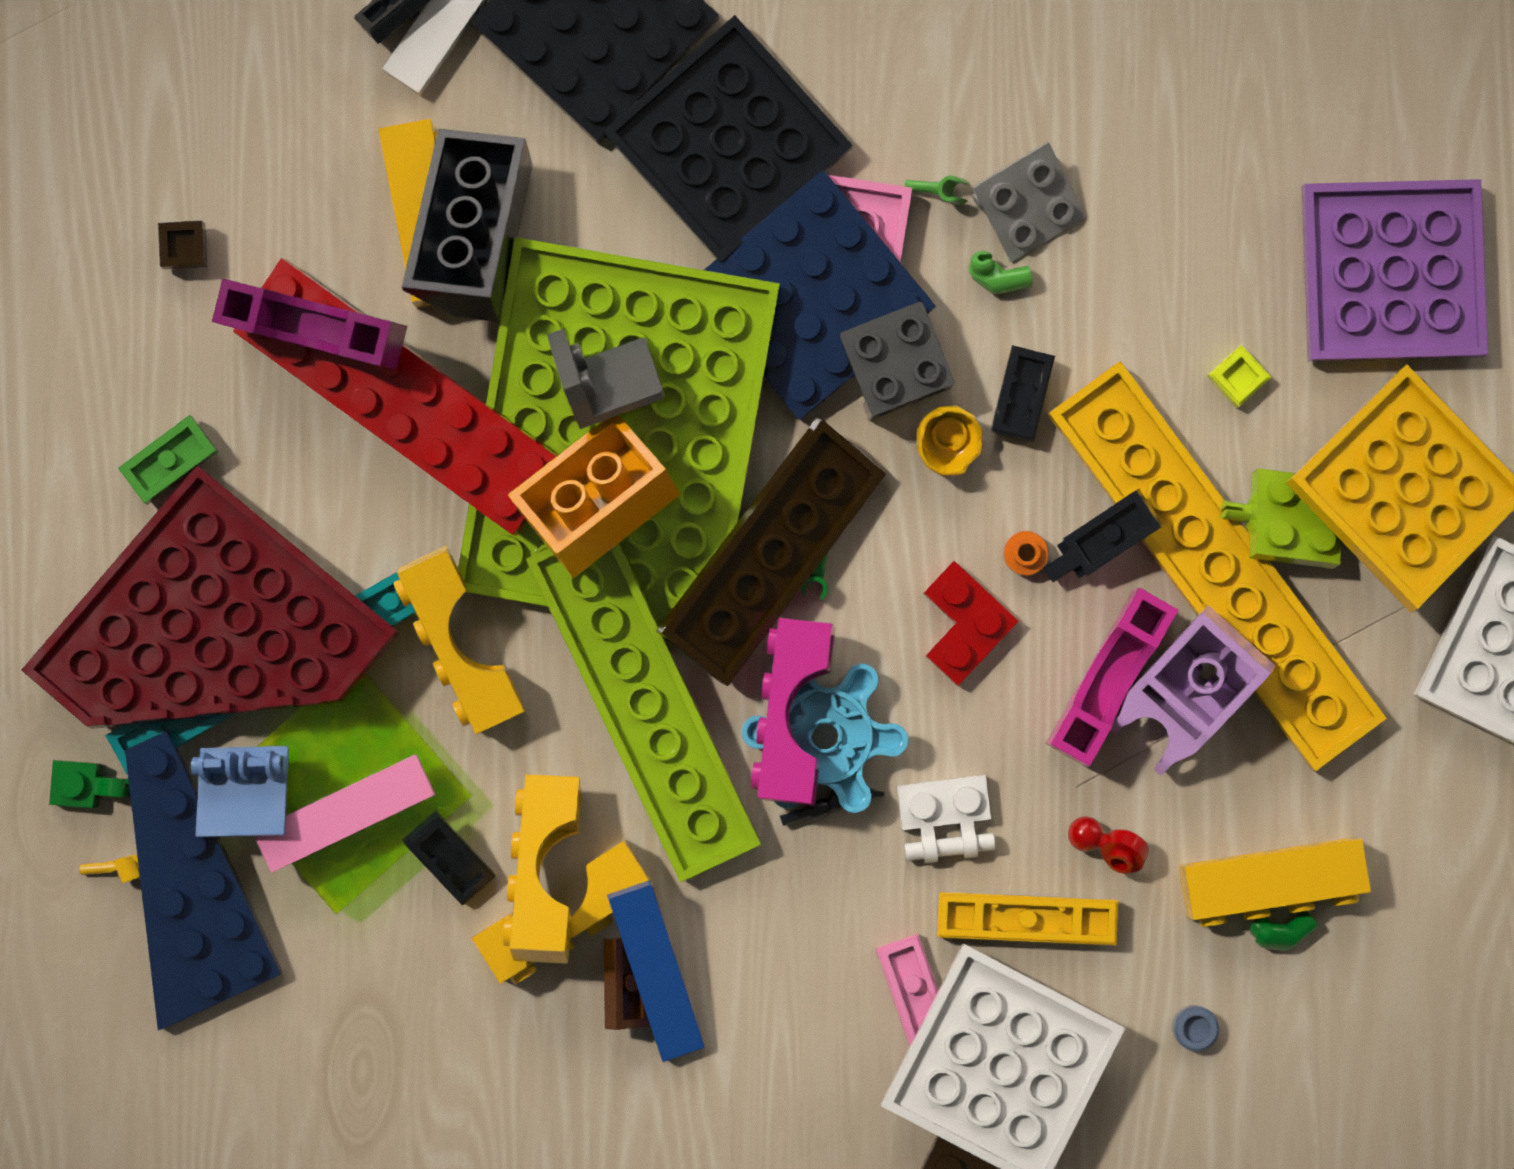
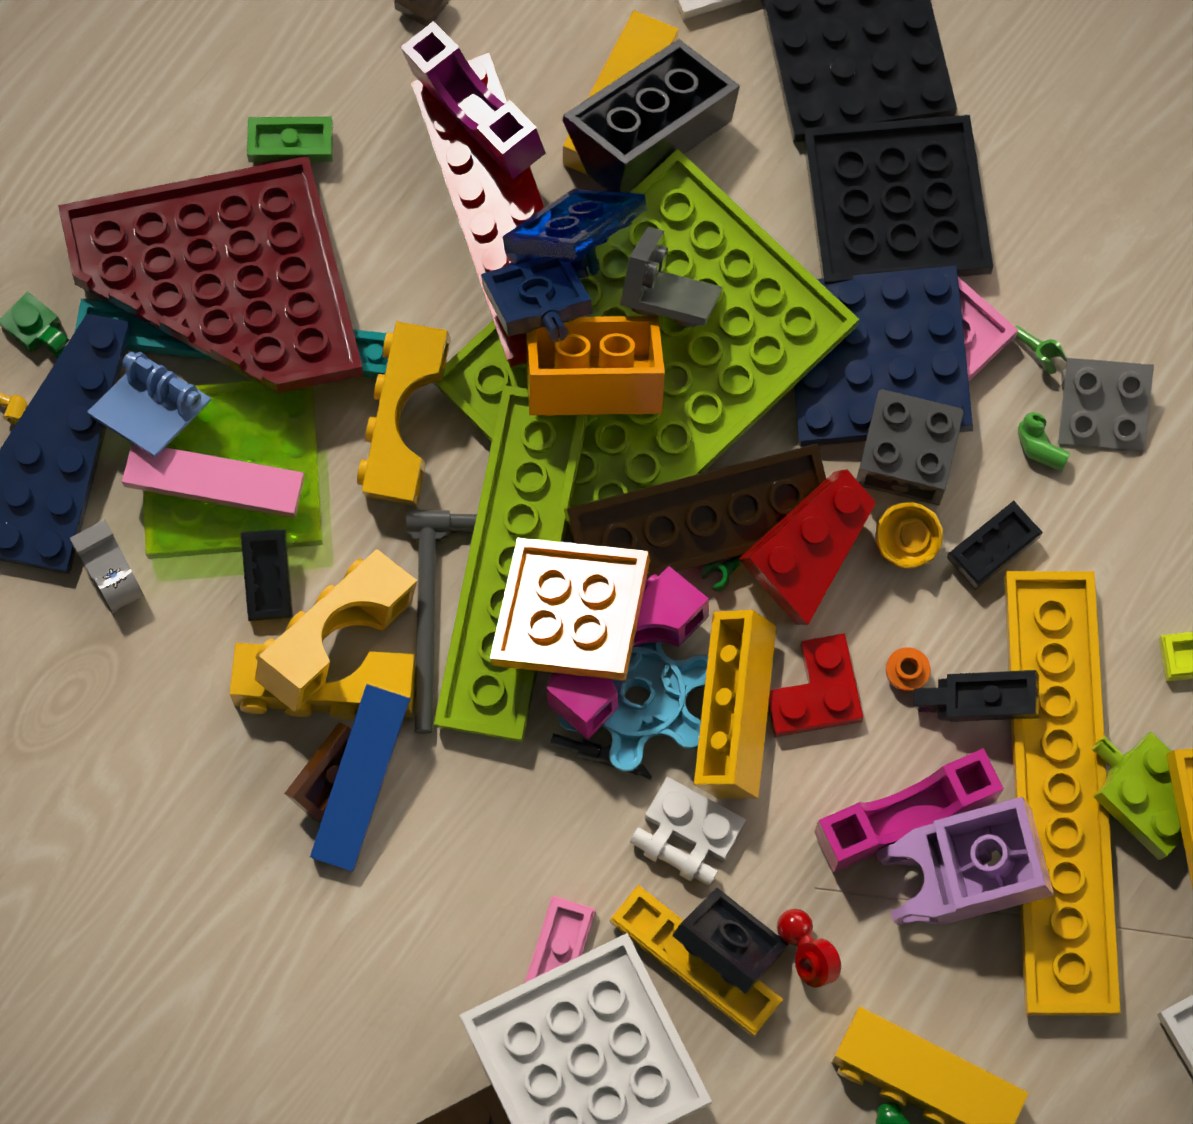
camera: 40 degrees right, 15 degrees down
(313, 946) = (107, 565): none -> light grey leg
(485, 379) = (574, 227): none -> clear blue plate
(501, 469) = (536, 295): none -> dark blue plate
(549, 718) = (427, 528): none -> dark grey bar
(728, 717) = (570, 609): none -> plate
(877, 510) = (809, 545): none -> red wedge
(912, 690) = (735, 705): none -> yellow brick
(1046, 887) = (730, 940): none -> black plate

